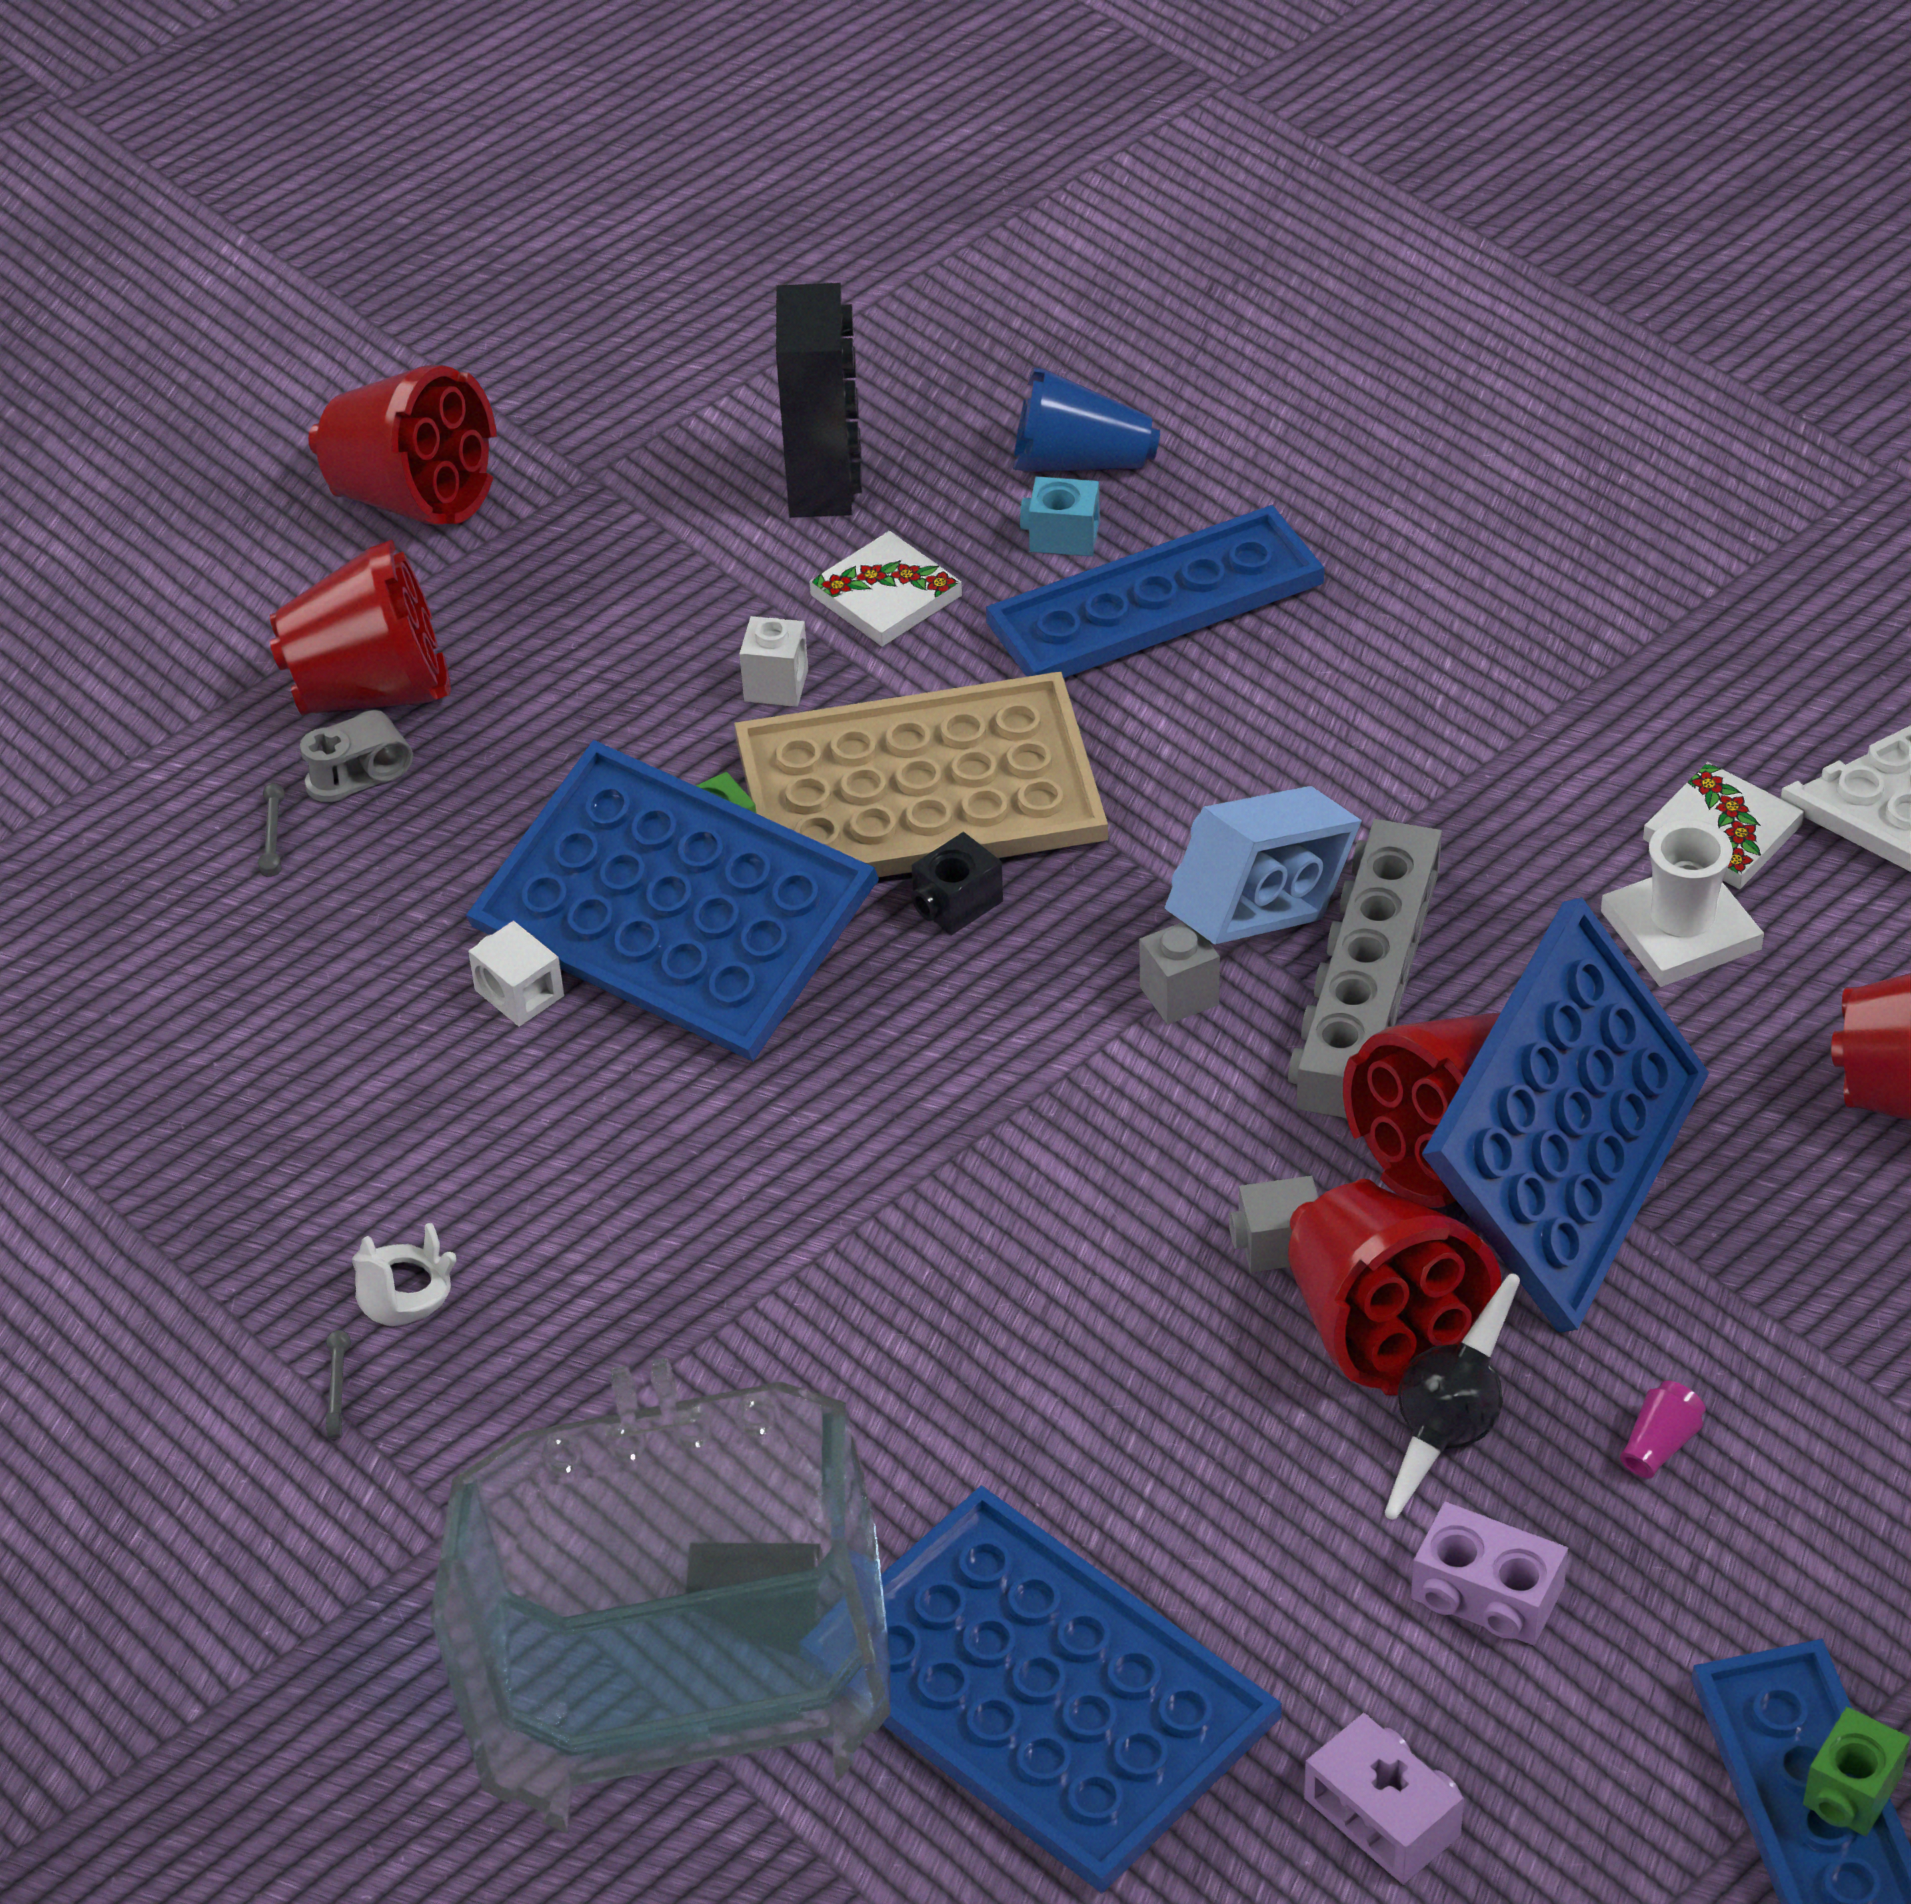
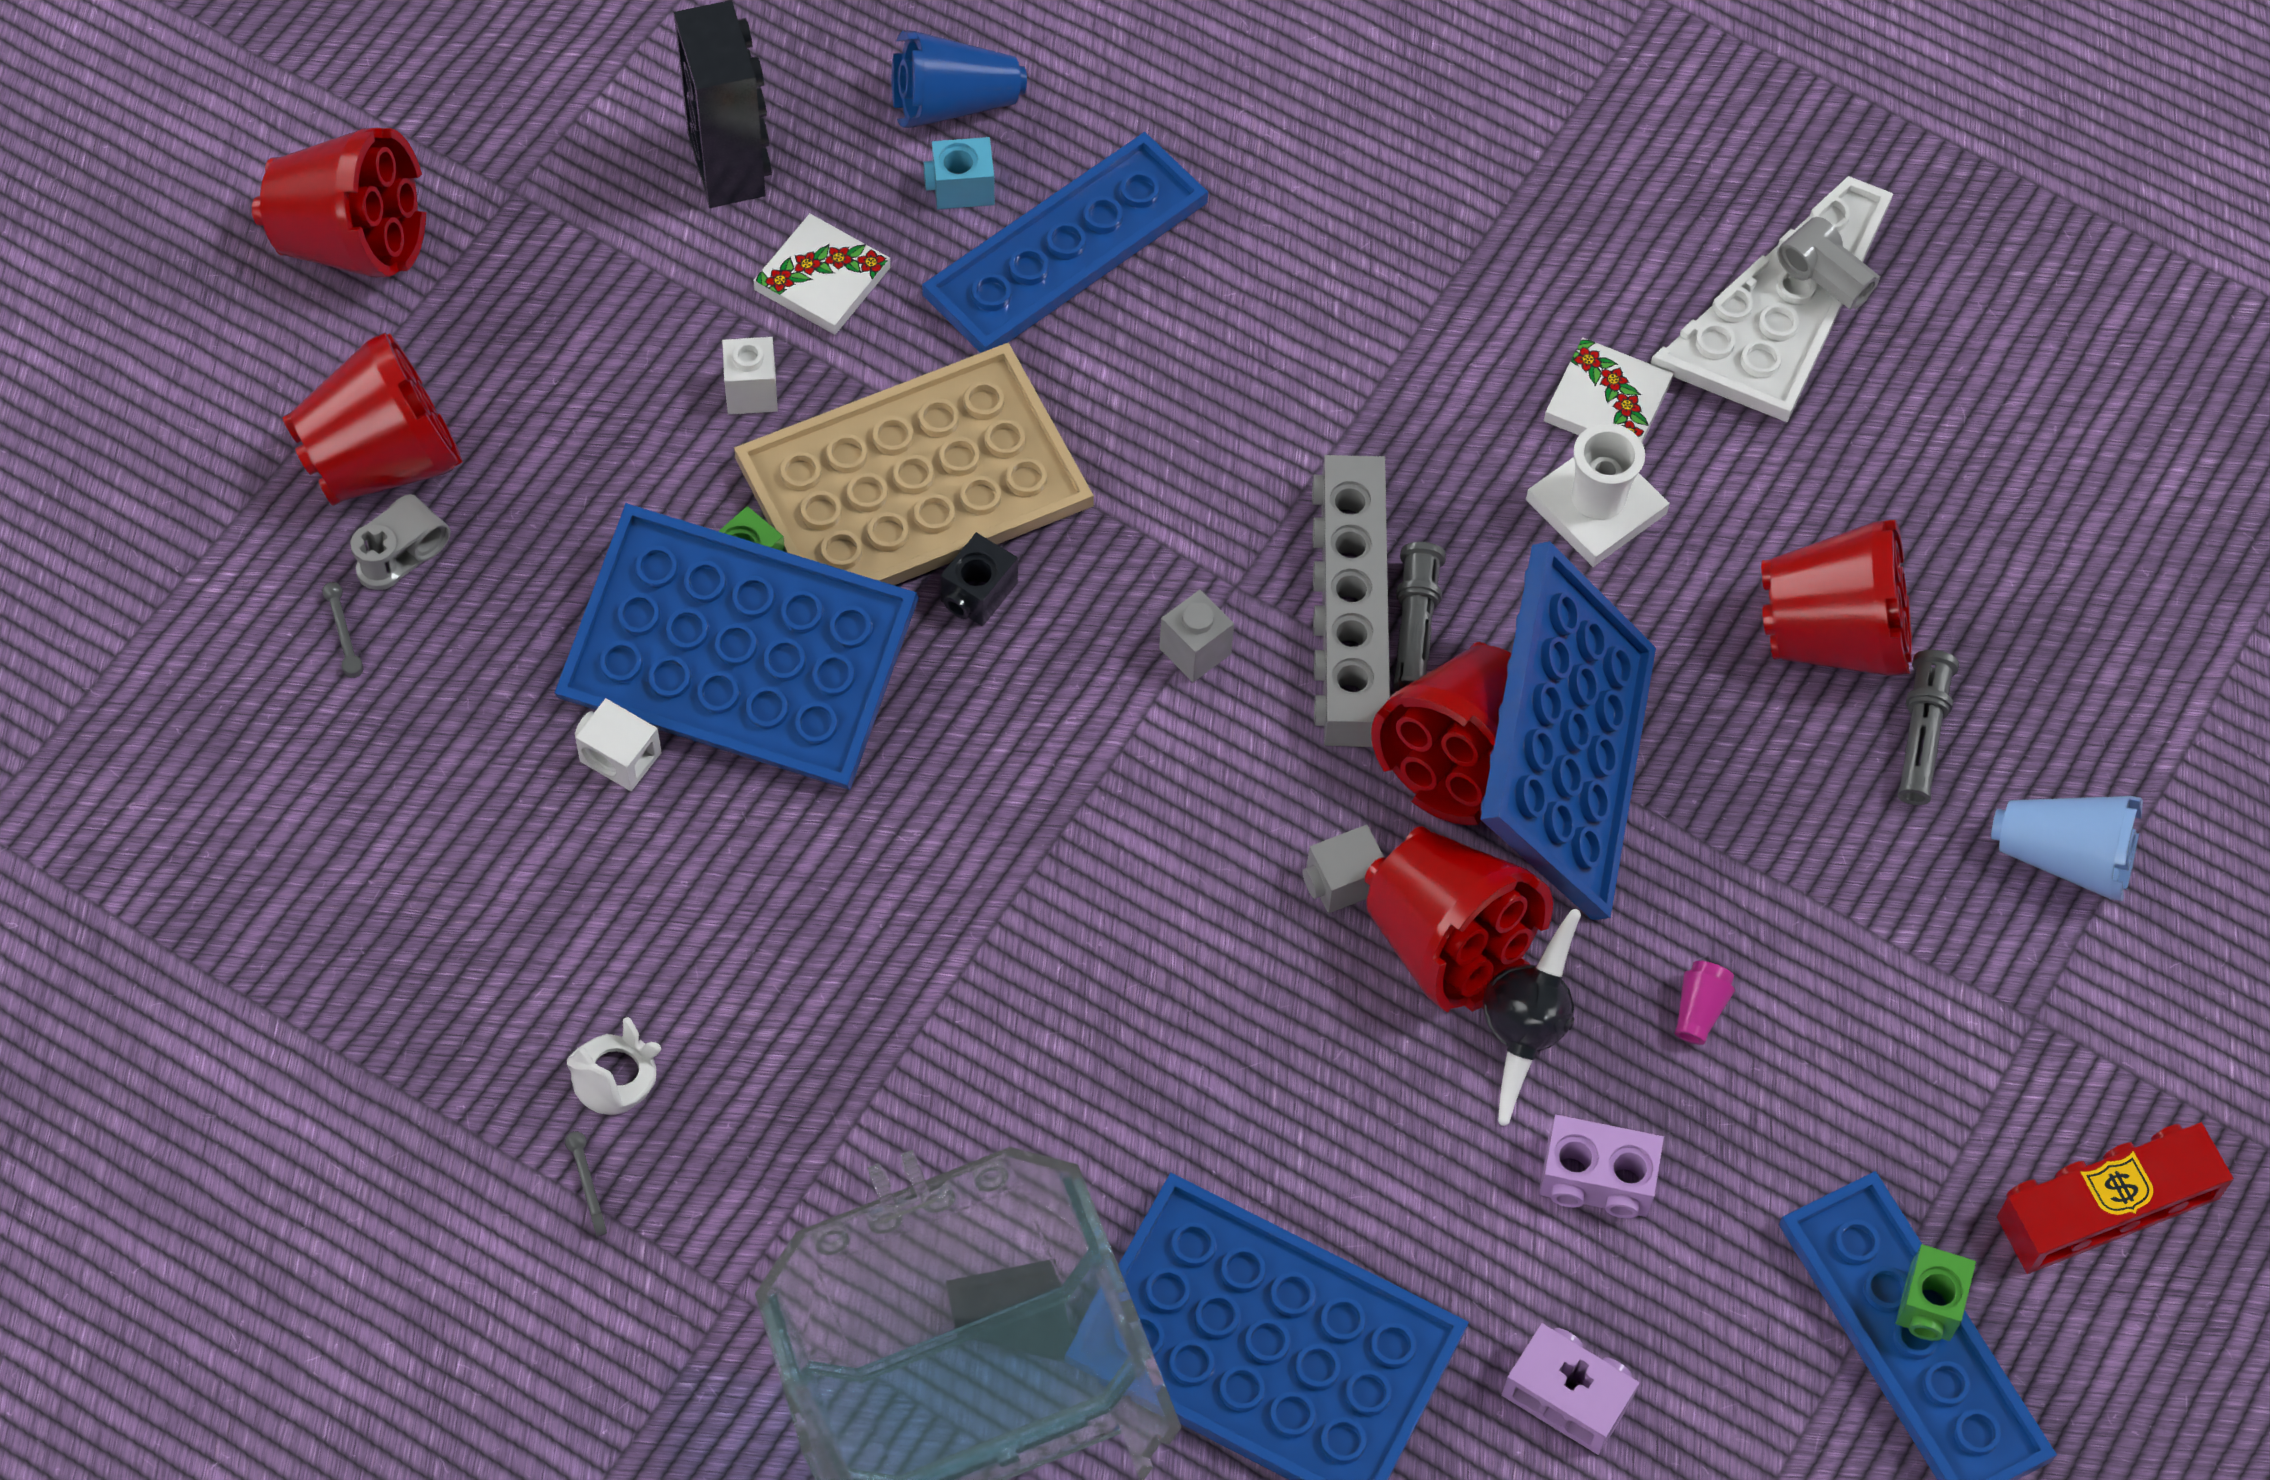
camera: 20 degrees left, 15 degrees up
(1262, 864) = (1248, 527): light blue brick -> none
(1448, 970) = (1418, 597): none -> dark grey pin

